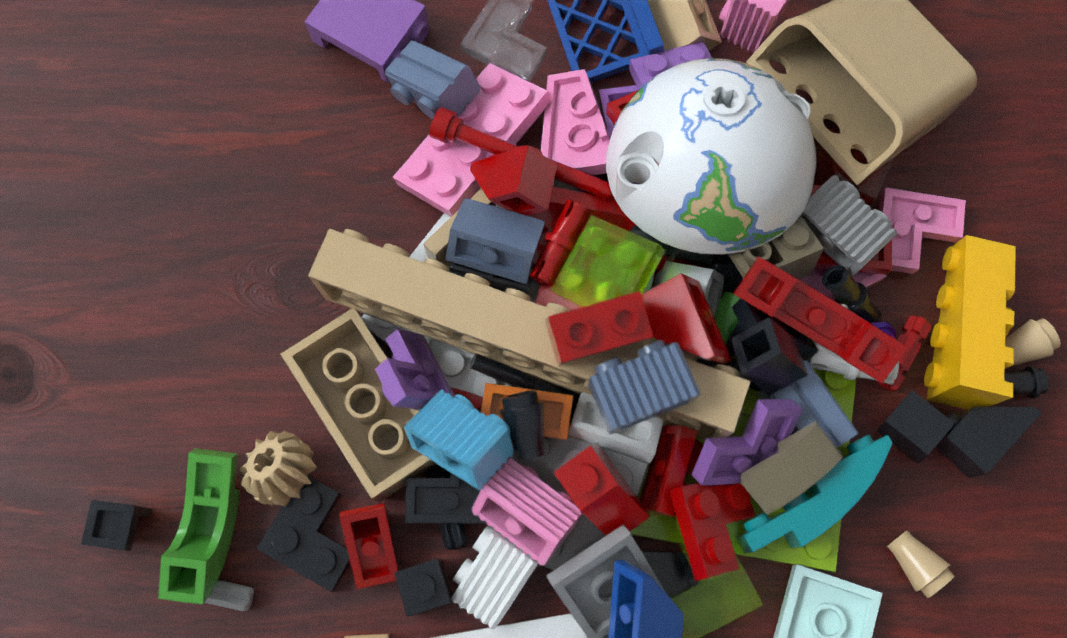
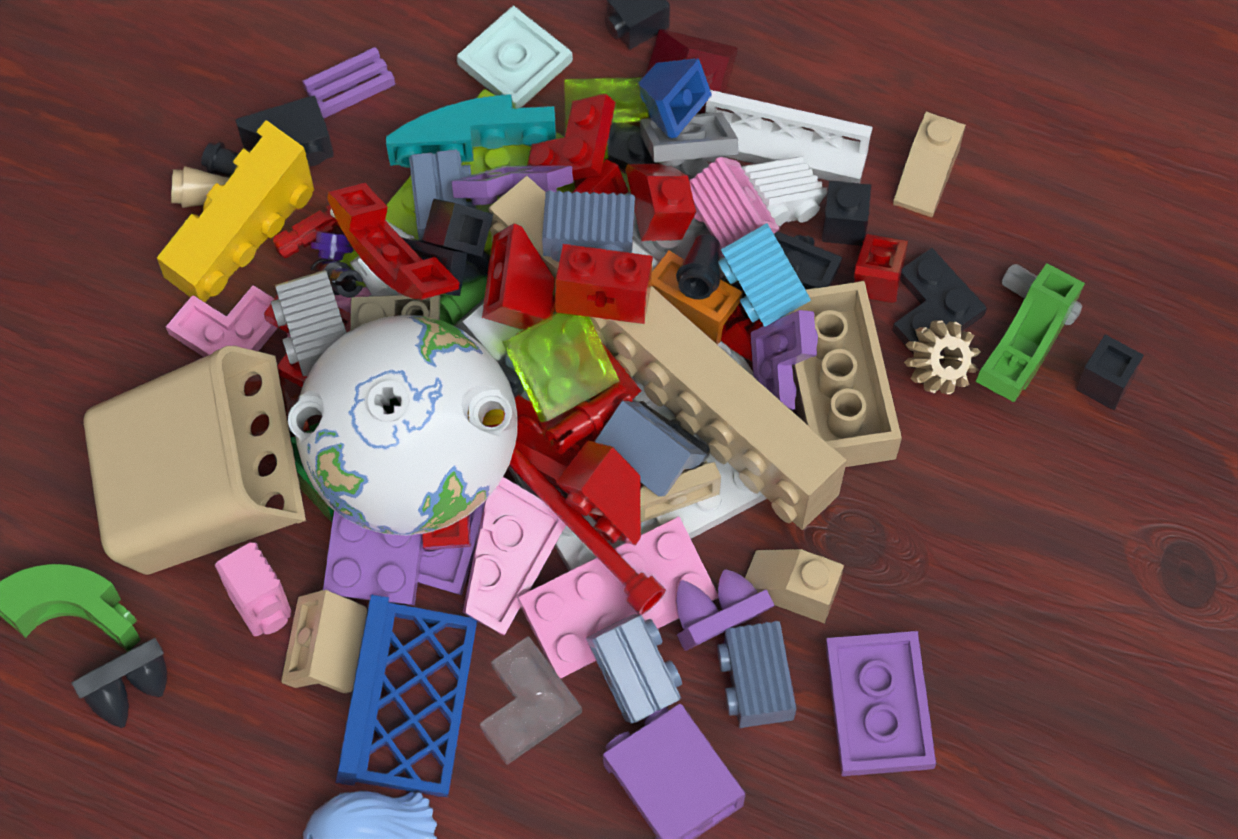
camera: 155 degrees left, 10 degrees down
(230, 148) = (880, 703): none -> medium lavender plate
(334, 125) = (758, 675): none -> sand blue brick
(334, 207) = (796, 580): none -> tan slope
(387, 142) = (704, 621): none -> medium lavender tile
(794, 469) = (477, 147): dark tan slope -> none
(915, 427) = (347, 158): black panel -> none
(920, 564) = (408, 62): tan cone -> none
(979, 532) = (345, 78): none -> medium lavender tile

